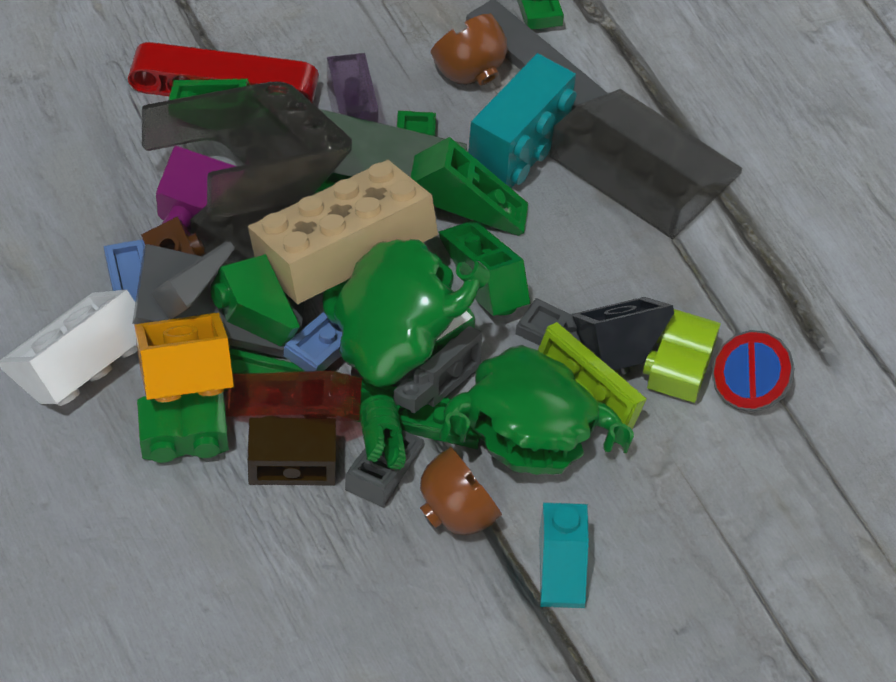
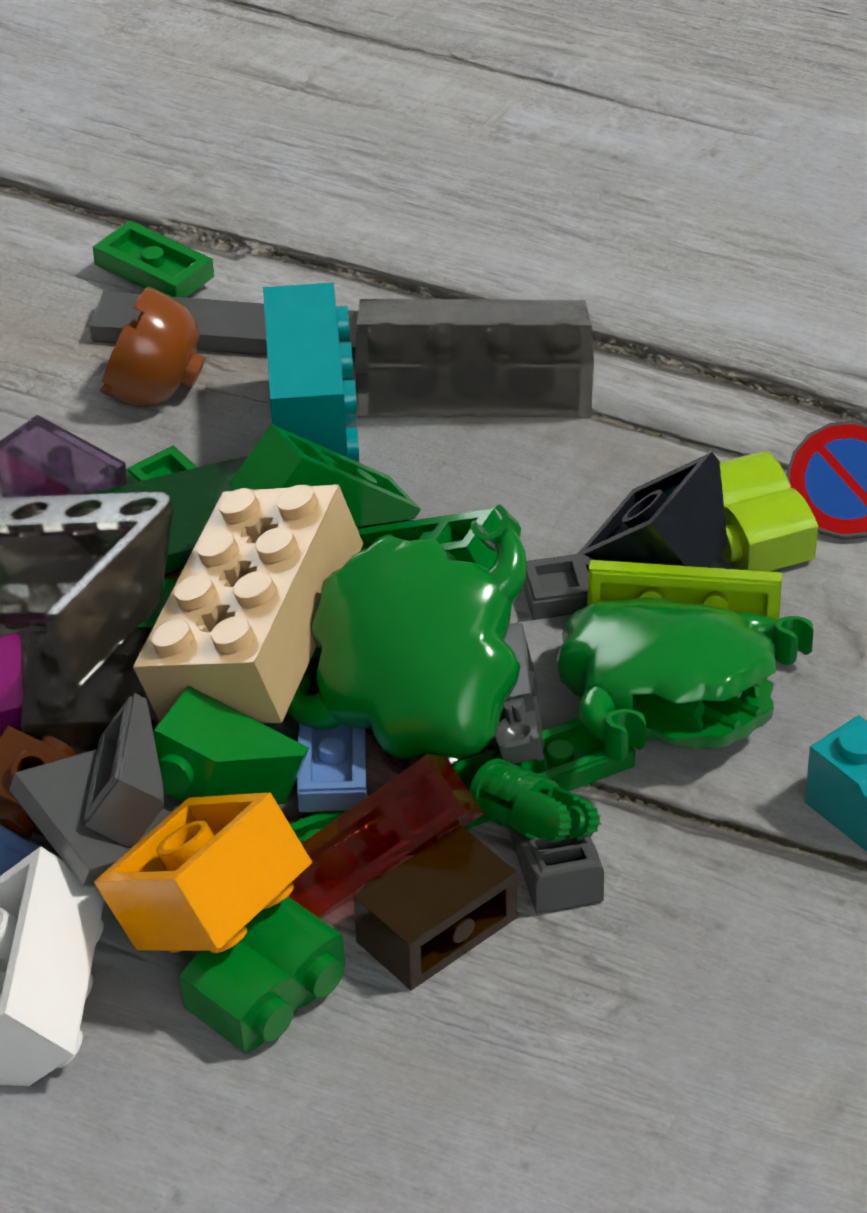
camera: 35 degrees left, 10 degrees down
(456, 496) = (693, 813): dark orange cylinder -> none

